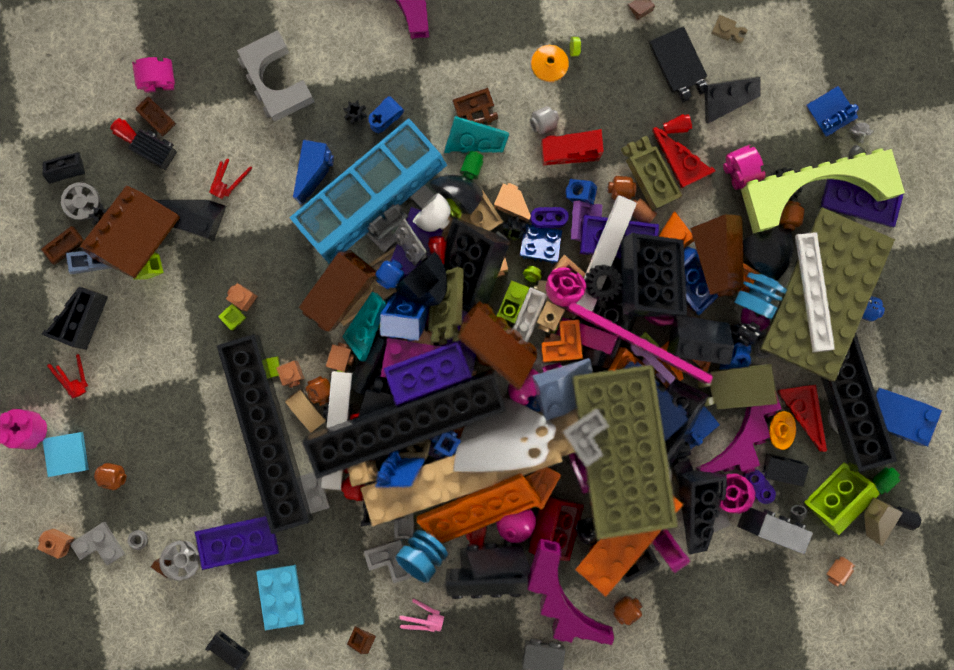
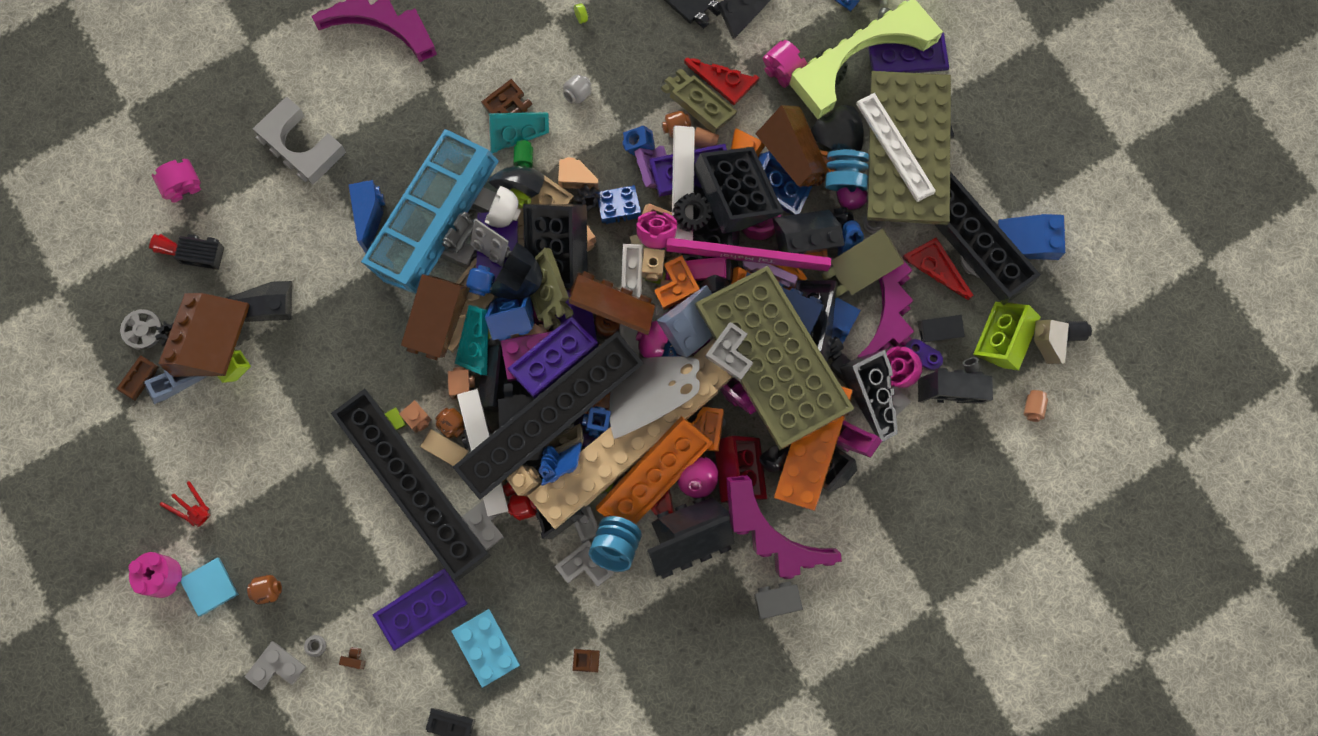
camera: 20 degrees left, 10 degrees down
(55, 543) = (228, 681): nougat brick -> none
(63, 168) = (112, 303): black slope -> none
(78, 319) = (178, 442): black wedge -> none
(155, 116) = (191, 220): reddish brown plate -> none
(179, 560) = (366, 646): light grey piece -> none
(219, 188) = (278, 265): red plant -> none
(232, 317) = (336, 384): lime plate -> none
(241, 297) = (338, 360): nougat brick -> none
(355, 118) = (388, 151): black gear -> none
(387, 112) = (420, 139): blue piece -> none
(433, 622) = (652, 610): bright pink plant -> none
(438, 245) = (517, 236): red cone -> none
(512, 301) = (612, 263): lime slope -> none
(532, 274) = (621, 234): lime plate -> none
(547, 71) = (566, 44): light orange dish -> none
(548, 215) = (615, 175): dark purple plate -> none
(572, 148) = (614, 104): red wedge -> none
(627, 610) = (844, 523): dark orange head -> none
(678, 125) = (708, 48): red cone -> none
(749, 334) = (851, 209): black gear -> none
(782, 430) = (923, 291): light orange dish -> none
(792, 215) = (847, 91): dark orange head -> none
(874, 309) = (959, 148): blue head -> none
(886, 480) = (1042, 301): green brick -> none

